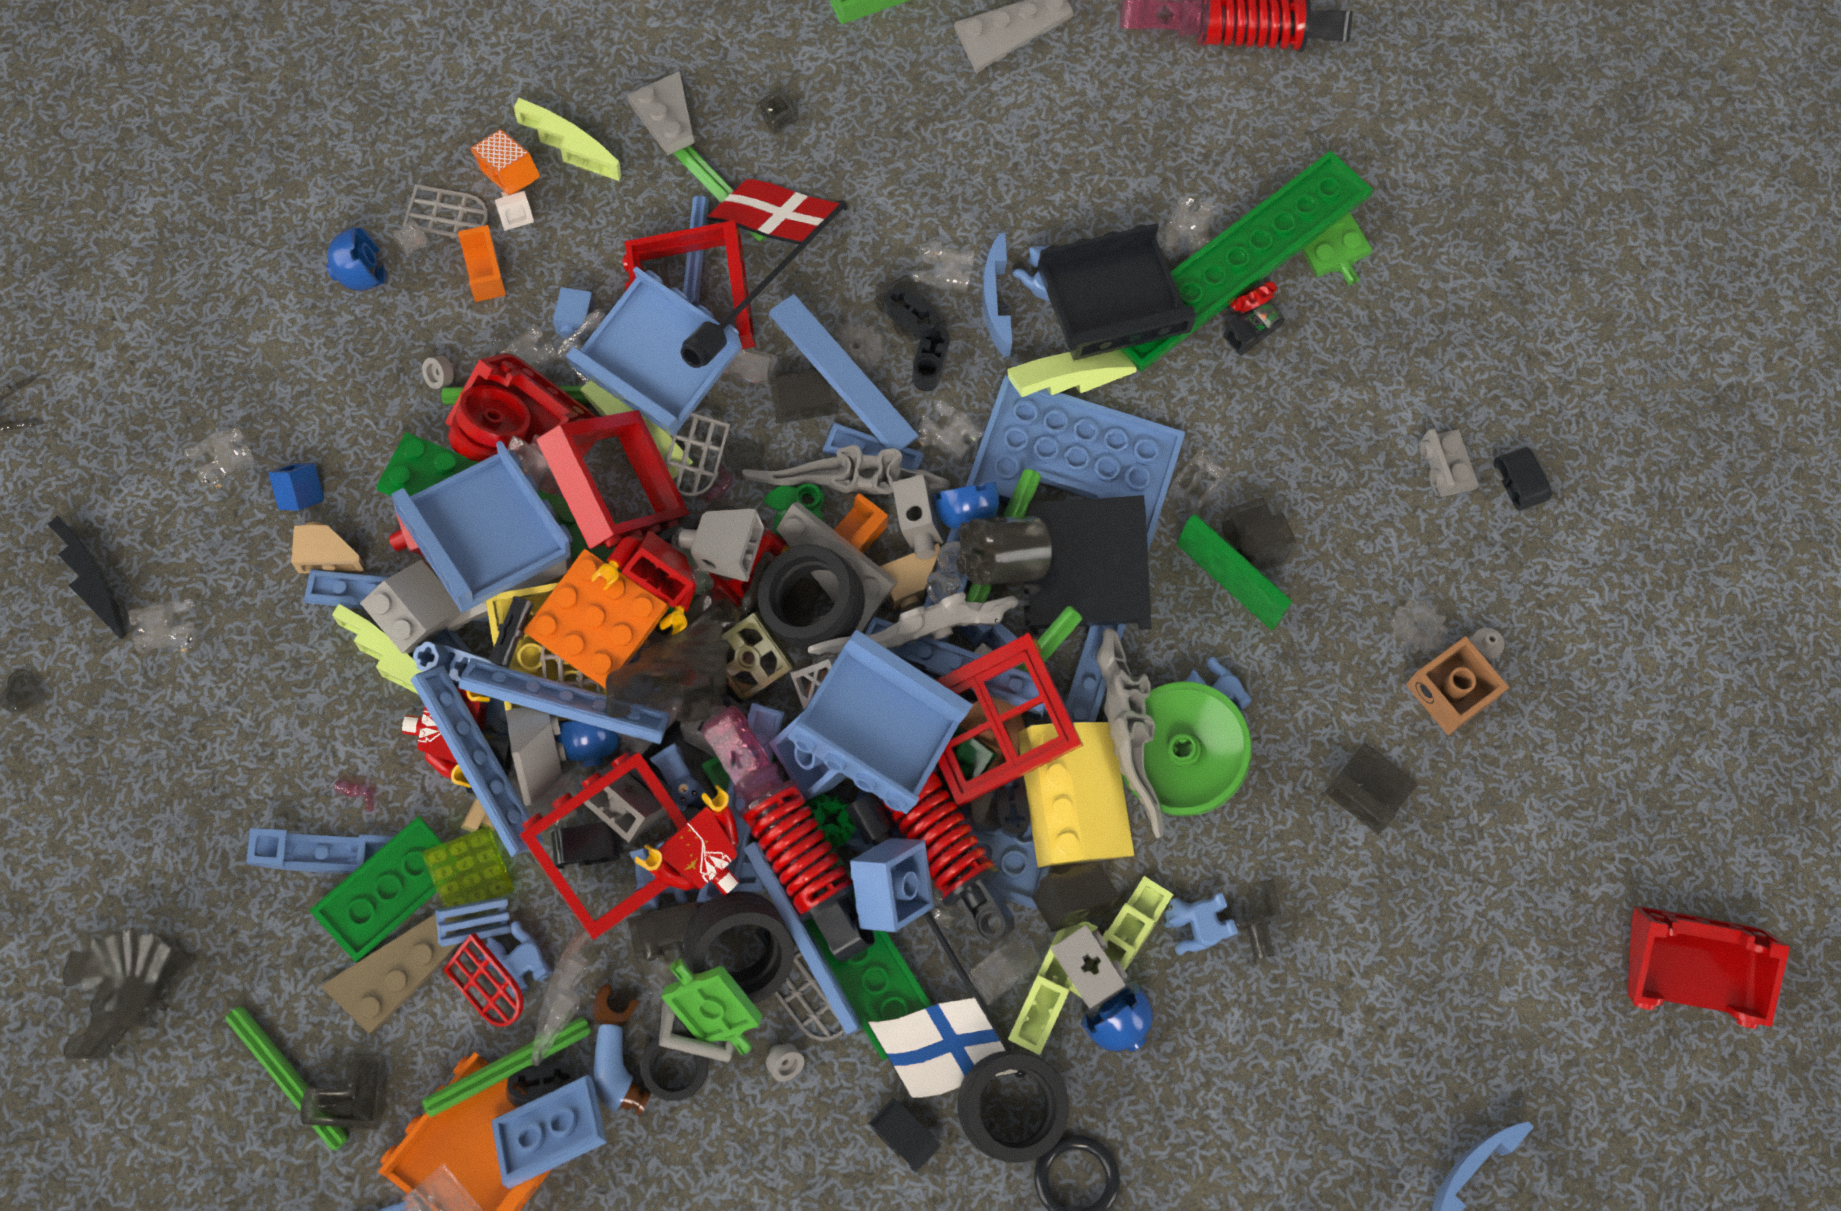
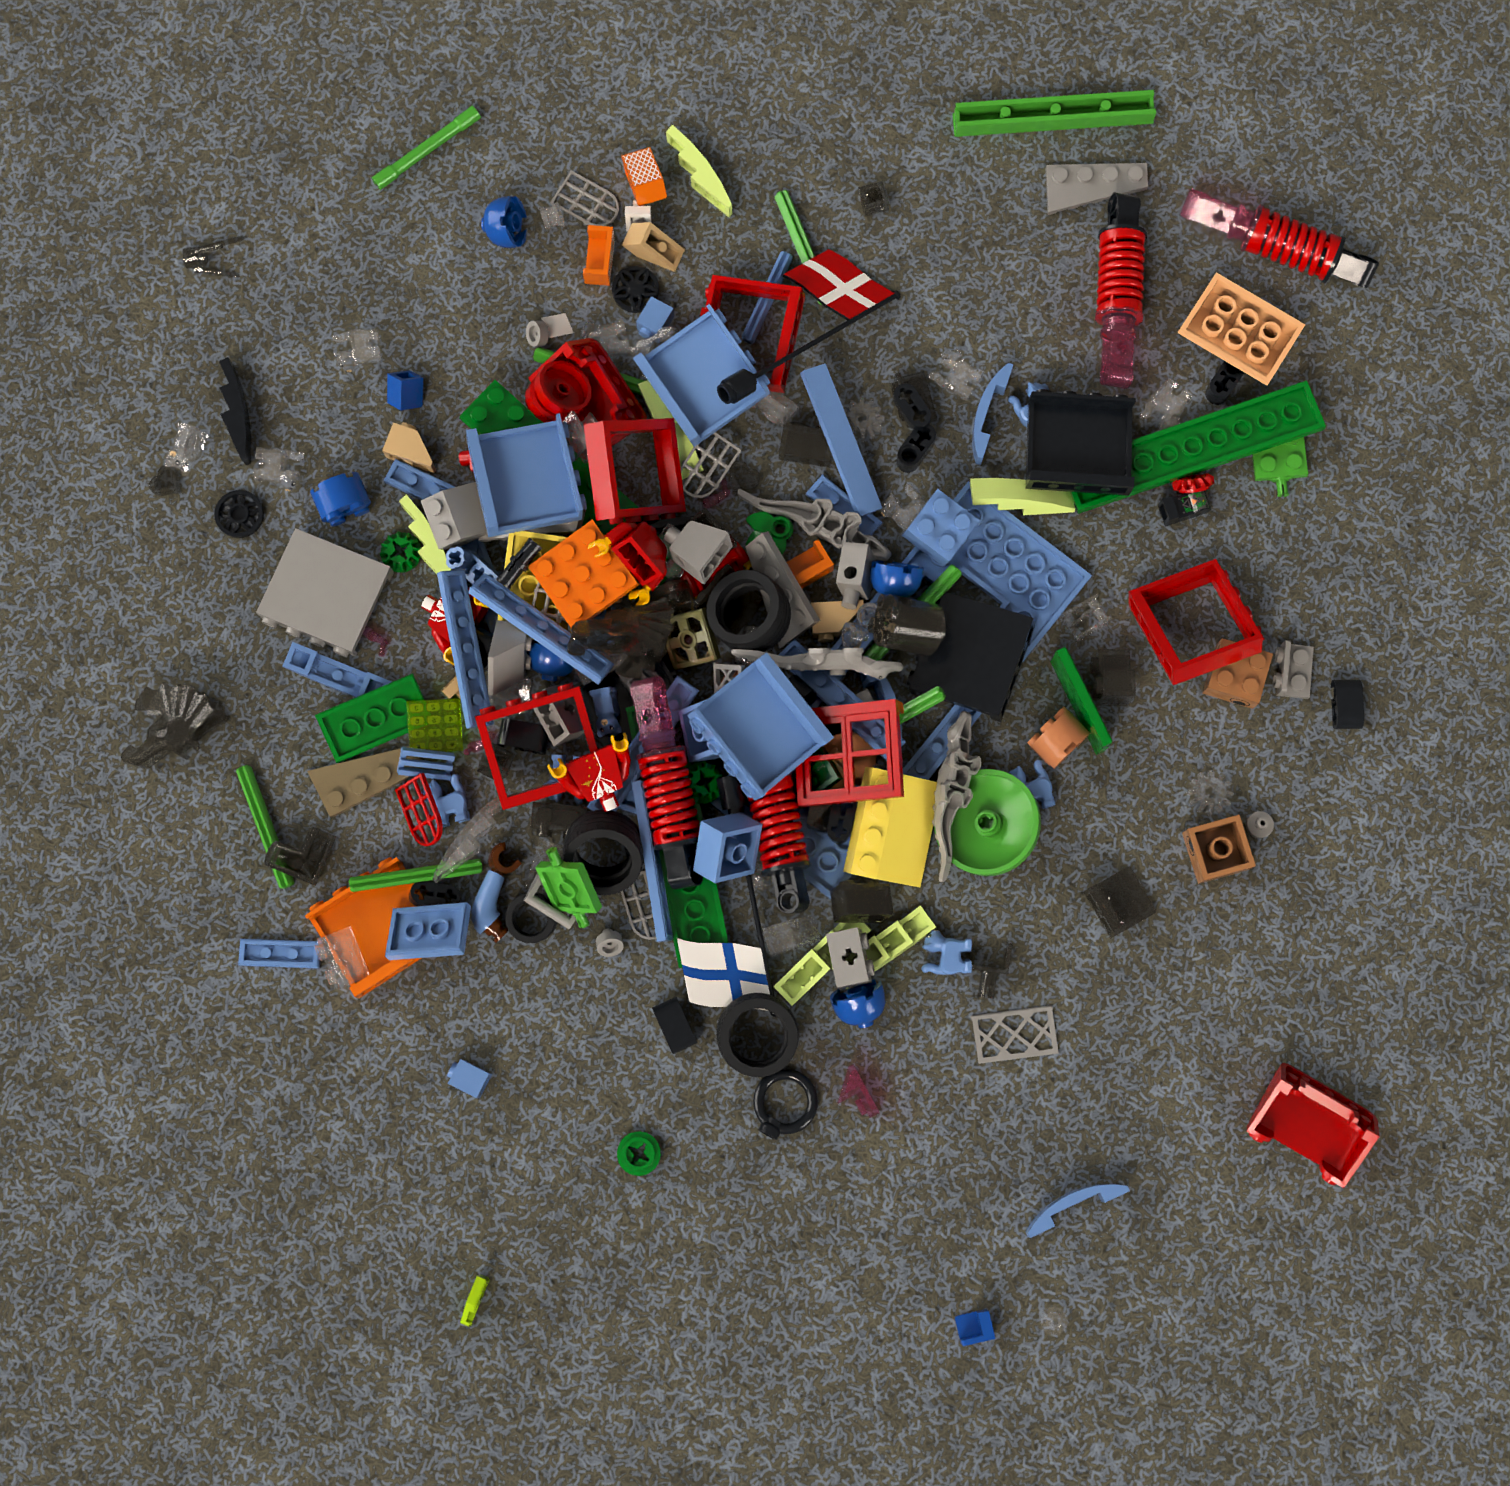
camera: 30 degrees right, 10 degrees up
(36, 641) = (186, 448): none -> clear animal
(130, 700) = (239, 514): none -> black wheel
(256, 635) = (341, 498): none -> blue brick
(263, 173) = (393, 171): none -> bright green piece
(270, 758) = (323, 592): none -> light grey panel
(355, 691) = (399, 563): none -> green gear
(459, 356) = (557, 325): none -> white sticker
(529, 878) = (477, 745): none -> clear pink piece
(536, 288) = (634, 288): none -> black wheel
(541, 234) = (653, 245): none -> tan slope
(550, 897) = (503, 758): none -> clear smoke slope
(664, 112) = (783, 171): light grey wing -> none
(996, 432) = (940, 528): none -> medium blue brick
(1089, 121) = (1120, 288): none -> piece
(1154, 1125) = (854, 1085): none -> clear pink slope
(1226, 622) = (1058, 737): none -> nougat brick
(1238, 118) = (1241, 328): none -> light nougat slope
(1244, 178) = (1229, 378): none -> black beam
(1313, 1019) = (1004, 1054): none -> light grey window
(1329, 499) = (1179, 583): none -> red window
(1391, 484) = (1240, 681): none -> medium nougat brick

